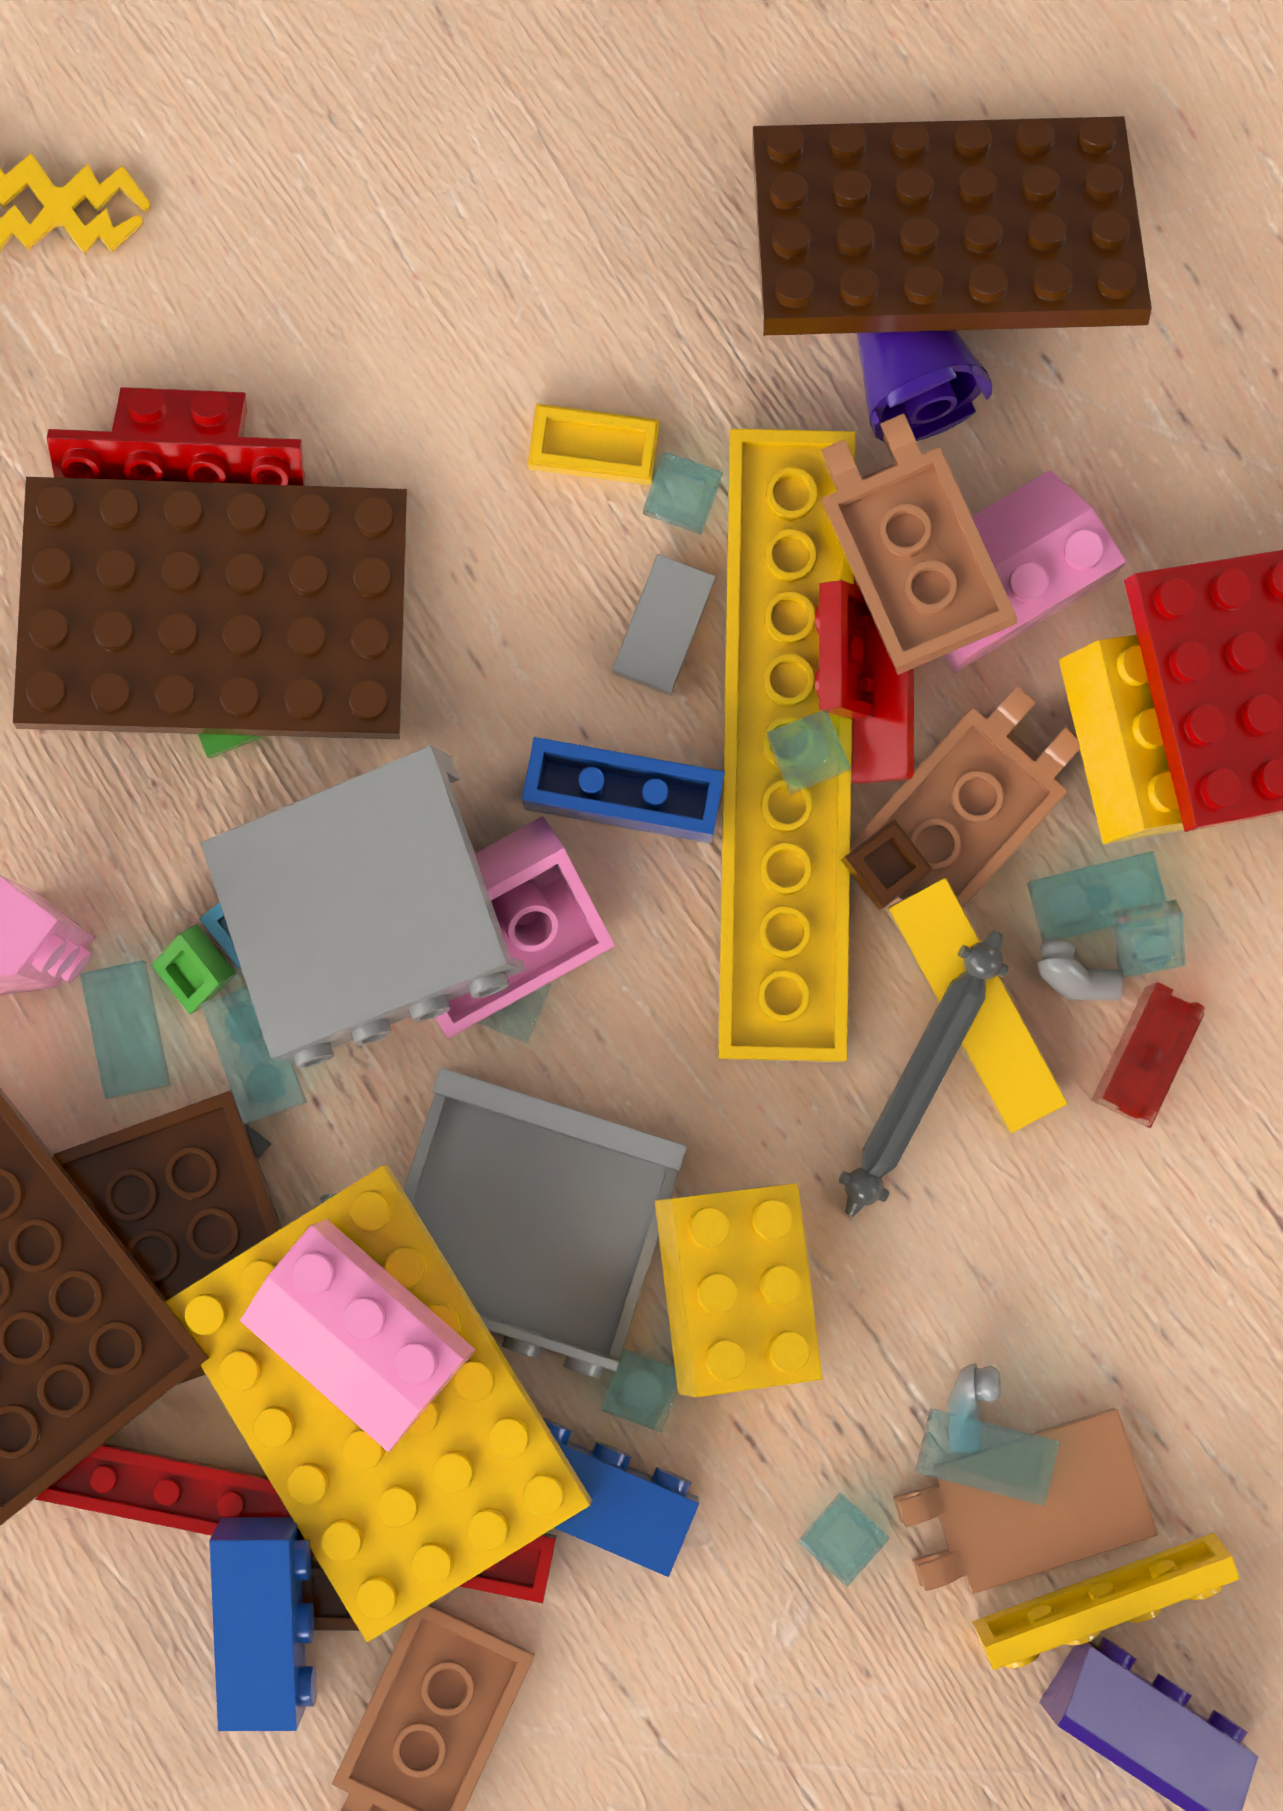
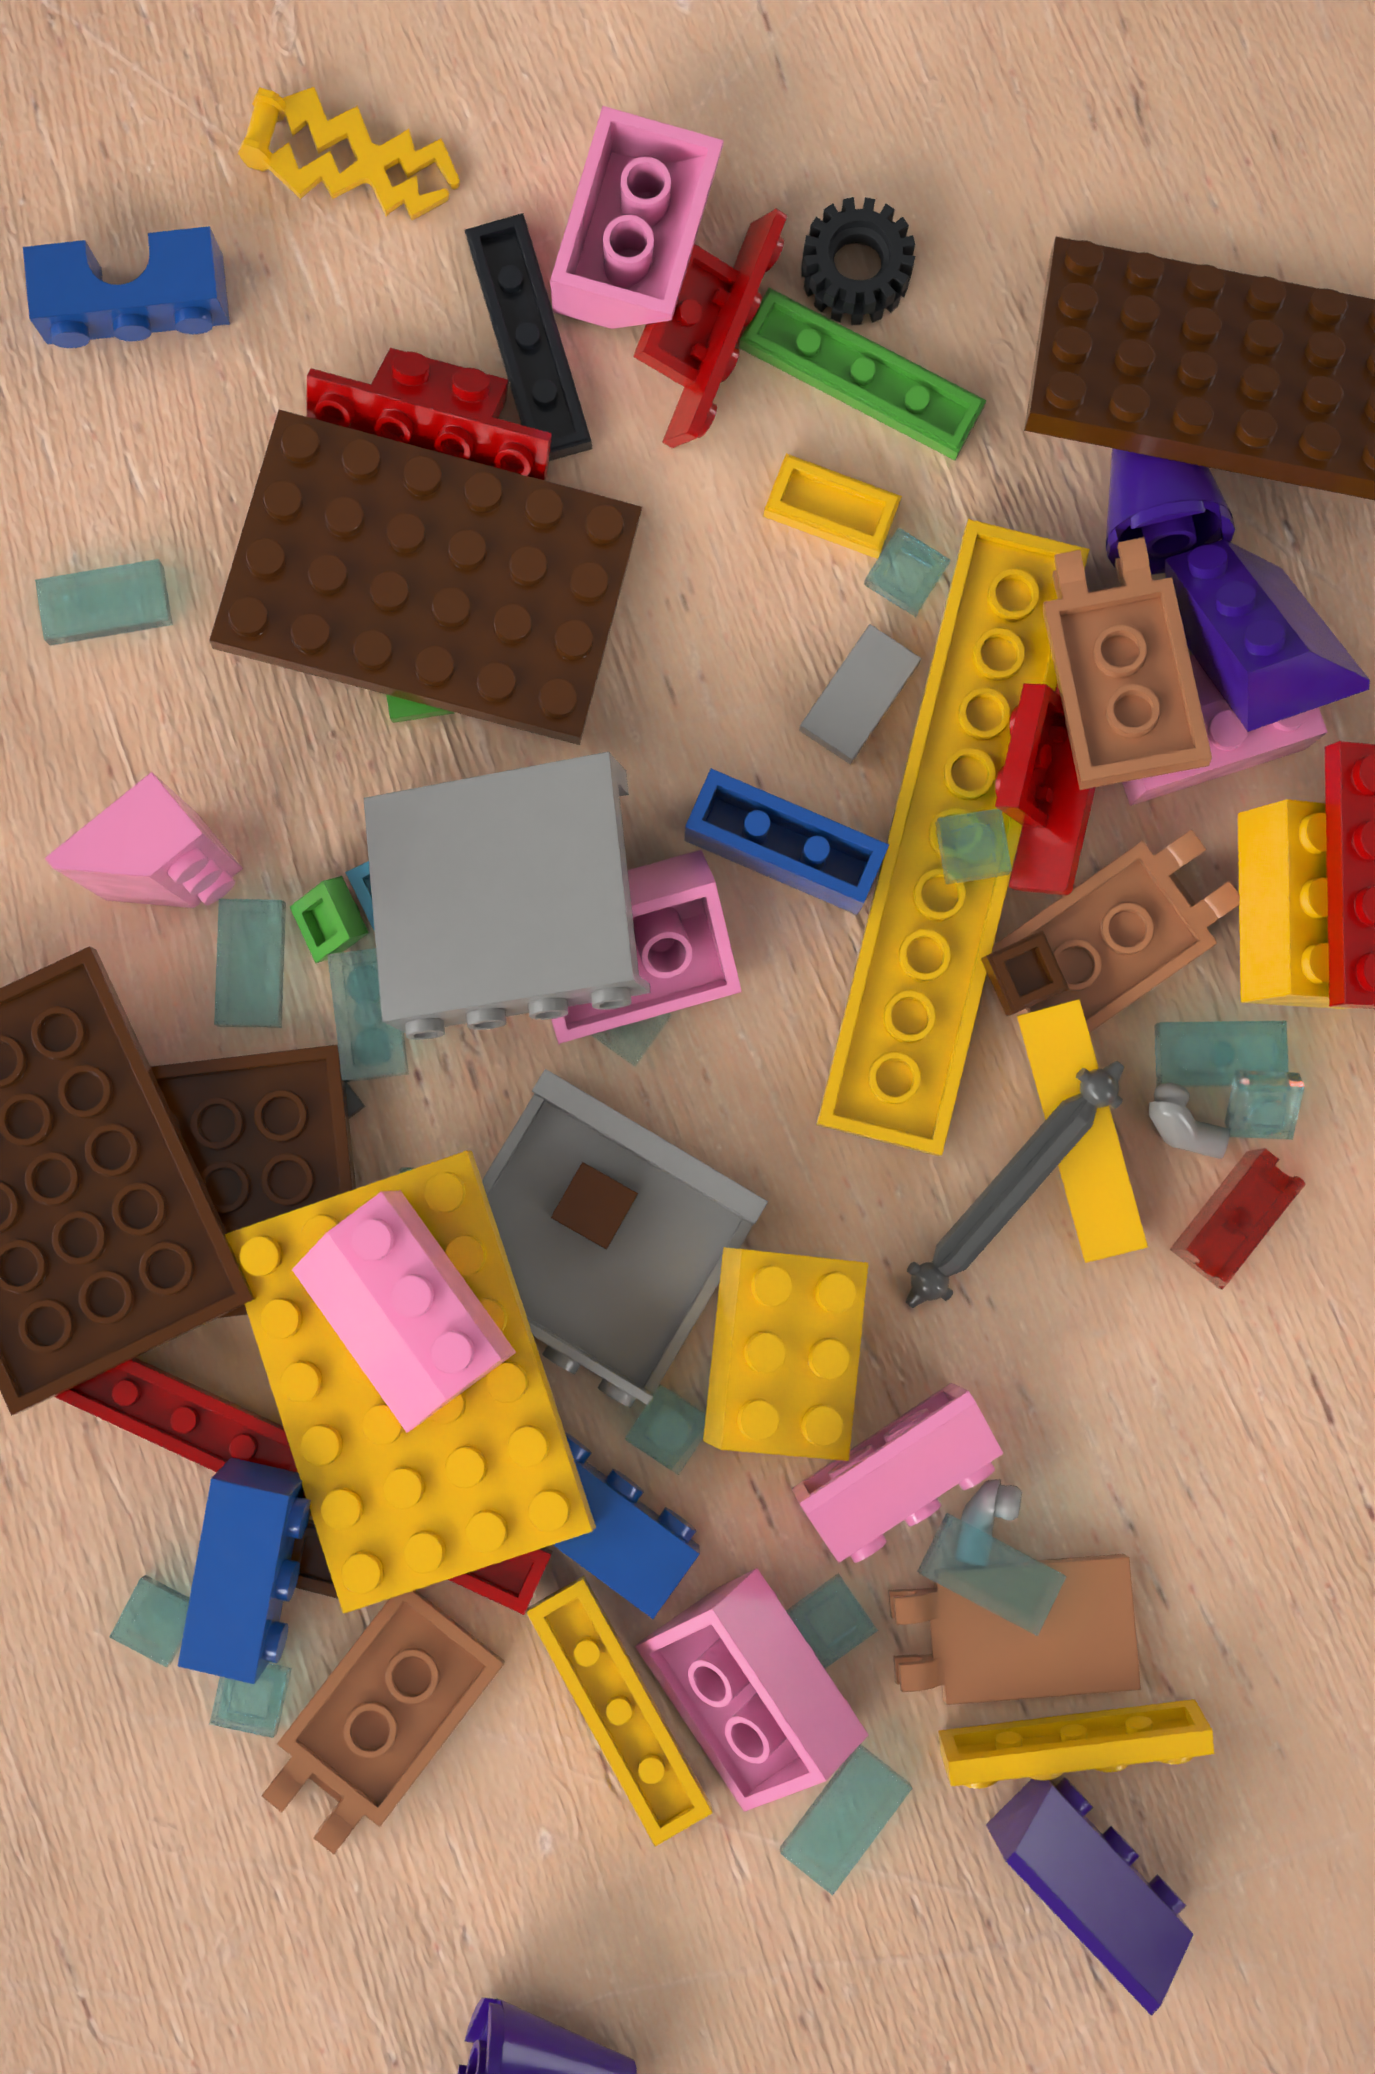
camera: 10 degrees right, 0 degrees up
(182, 1695) = (153, 1621): none -> clear light blue tile
(253, 342) = (528, 333): none -> black tile
(299, 1753) = (252, 1706): none -> clear light blue tile
(333, 211) = (633, 221): none -> bright pink slope
(422, 290) = (706, 324): none -> red bracket
(519, 1189) = (594, 1205): none -> reddish brown tile
(555, 160) = (865, 228): none -> black tyre
(593, 305) = (862, 374): none -> bright green tile
(657, 1674) = (619, 1711): none -> yellow plate
(782, 1625) = (753, 1692): none -> bright pink slope
(875, 1381) = (899, 1473): none -> bright pink slope
(901, 1727) = (845, 1819): none -> clear light blue tile
(1038, 480) = (1258, 635): none -> dark purple slope

